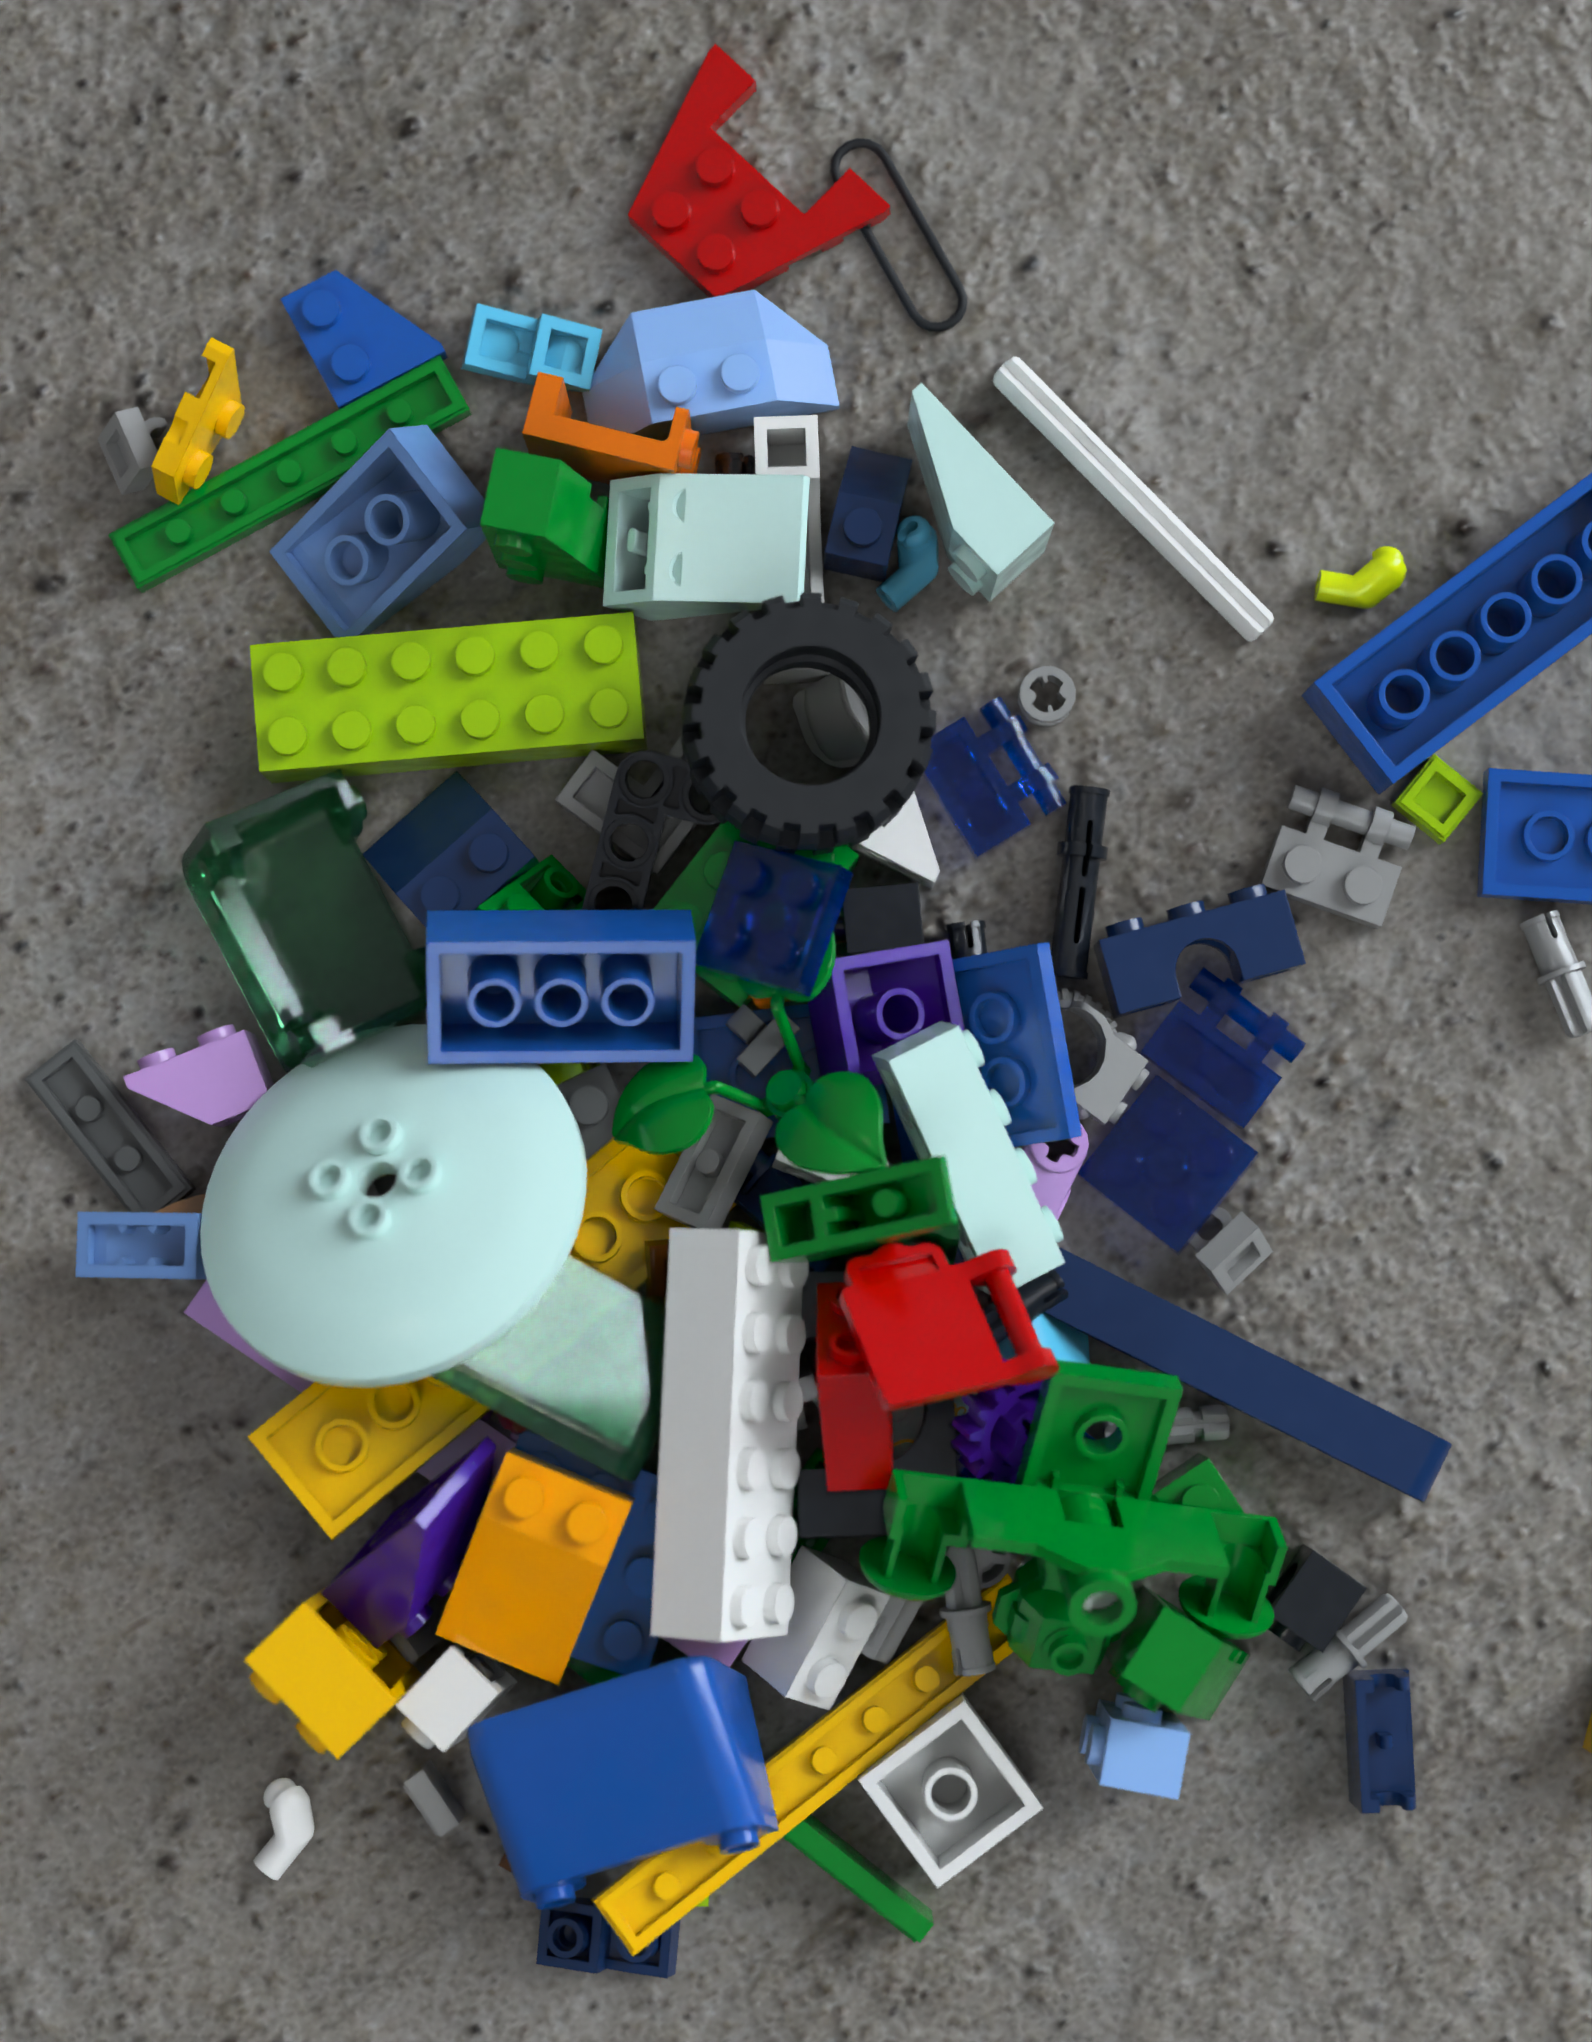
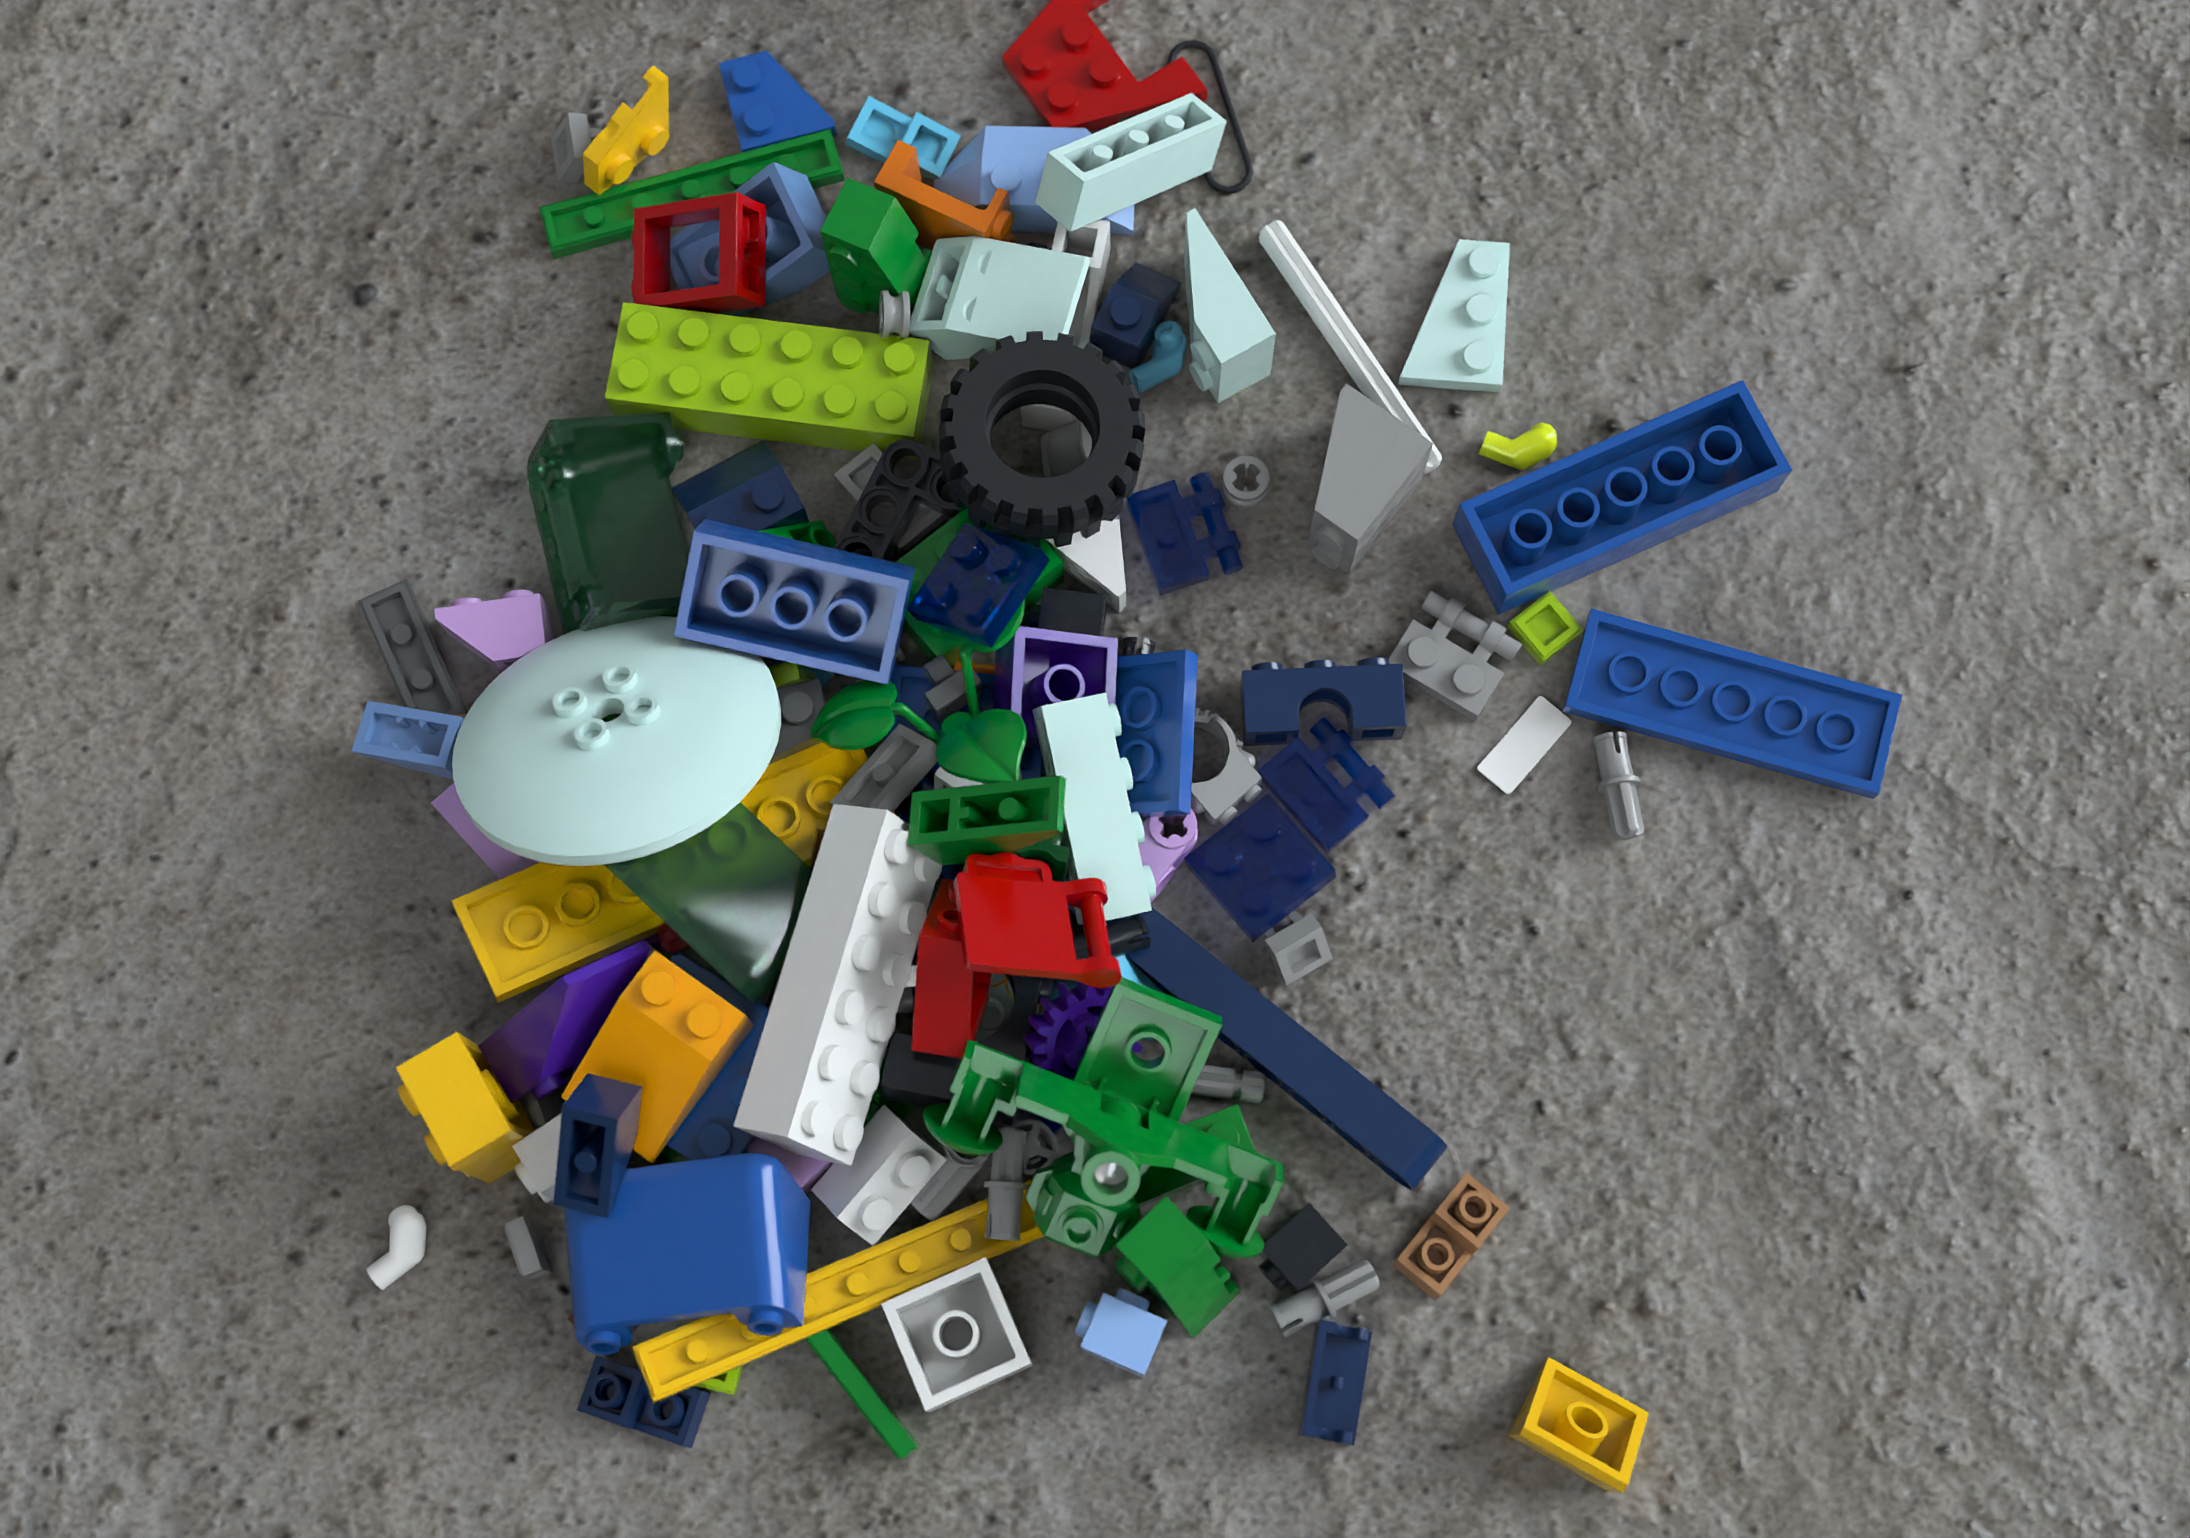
camera: 15 degrees right, 10 degrees down
(378, 554) = (740, 234): none -> red window
(496, 1689) = (596, 1143): none -> dark blue slope
(585, 593) = (894, 314): none -> light grey bush
(825, 333) = (1129, 161): none -> light aqua brick
(1078, 880) = (1257, 574): black pin -> none
(1187, 672) = (1365, 479): none -> light grey slope
(1266, 437) = (1465, 323): none -> light aqua wing
(1440, 945) = (1524, 745): none -> white sticker
(1475, 1541) = (1450, 1236): none -> medium nougat slope

